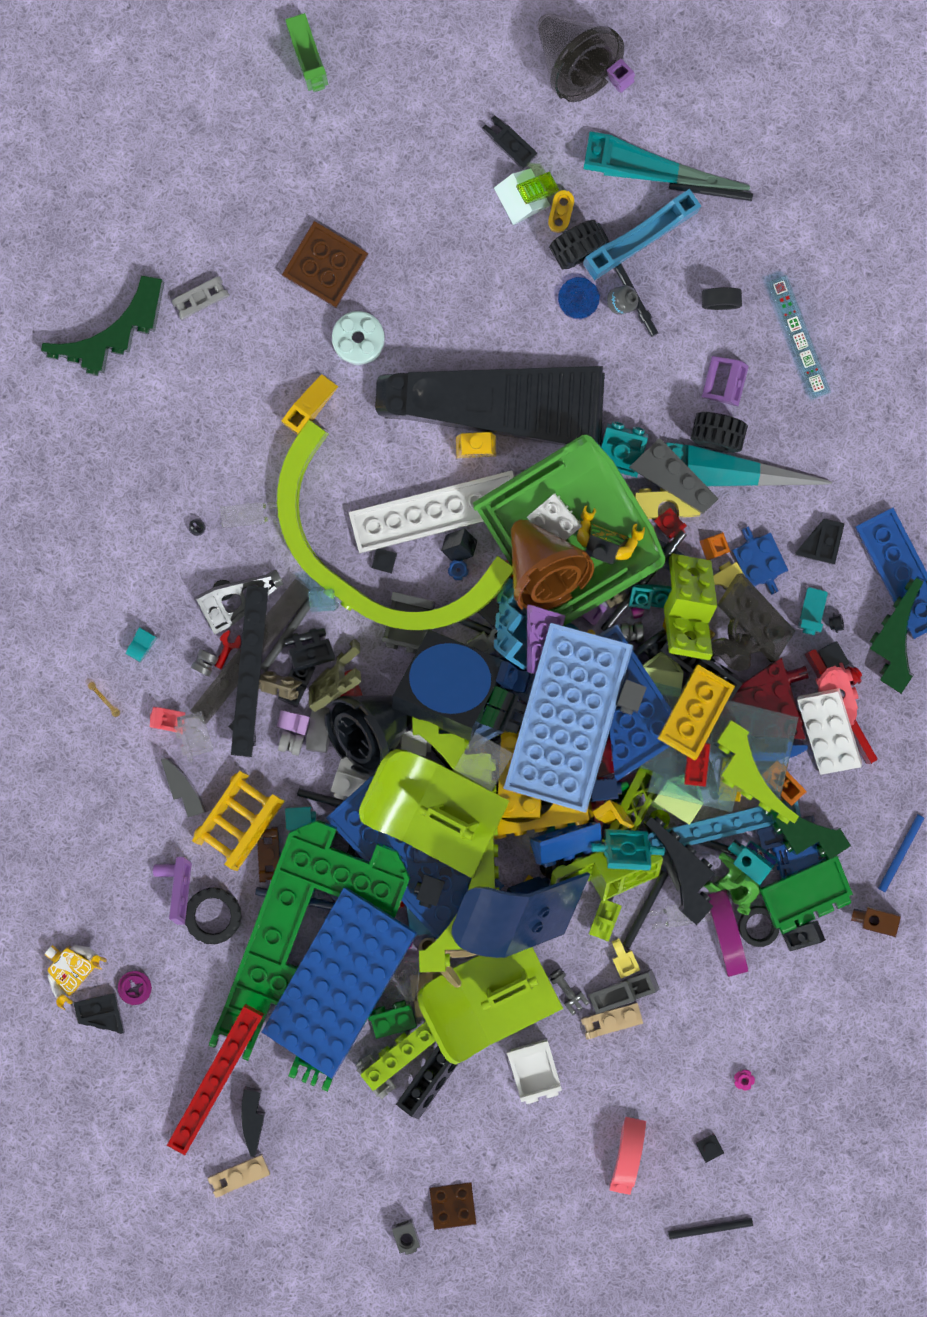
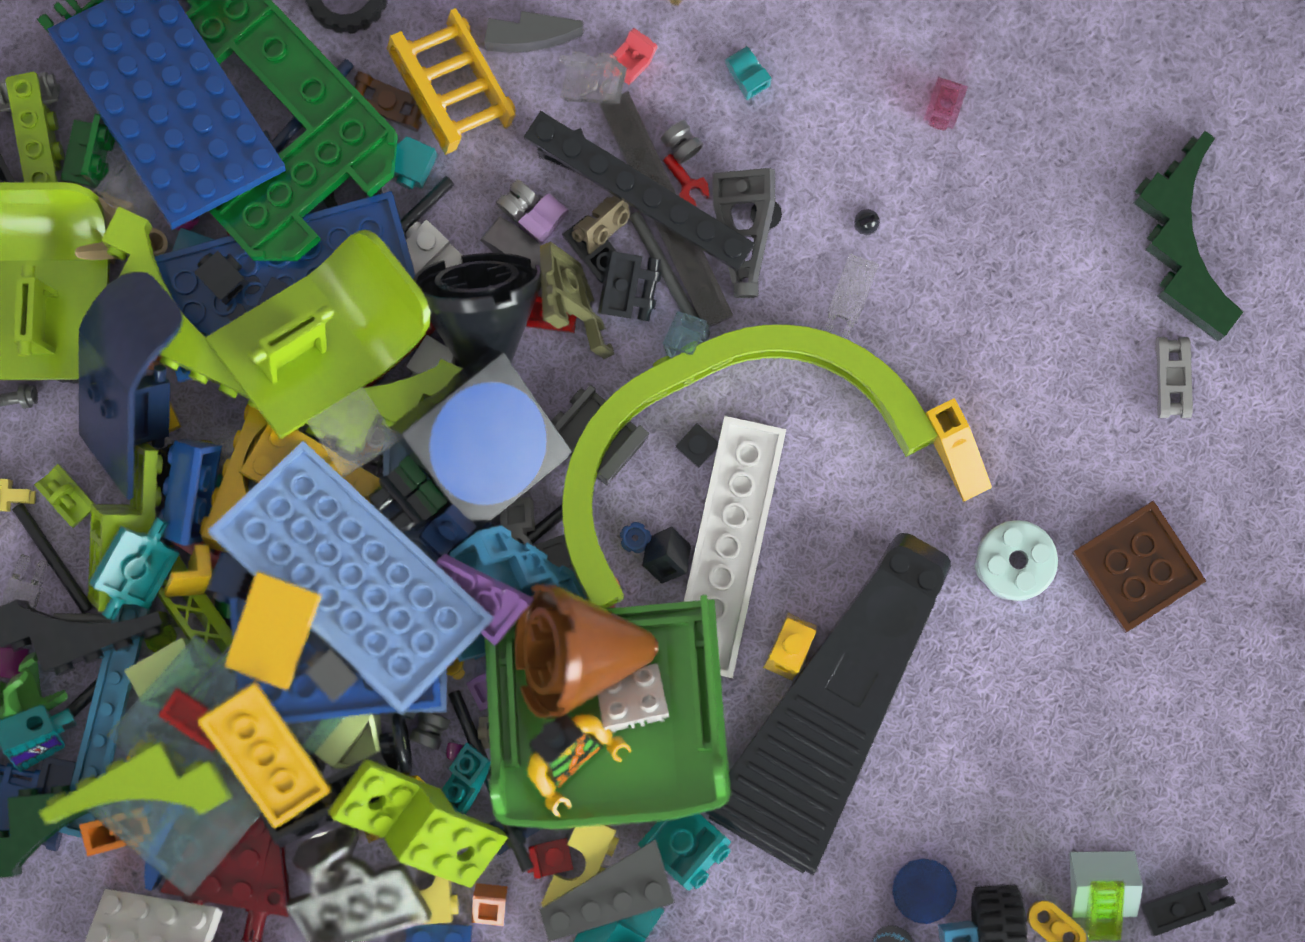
camera: 115 degrees right, 5 degrees down
(94, 521) = (950, 92): none -> clear pink brick
(623, 743) = (273, 630): none -> yellow tile

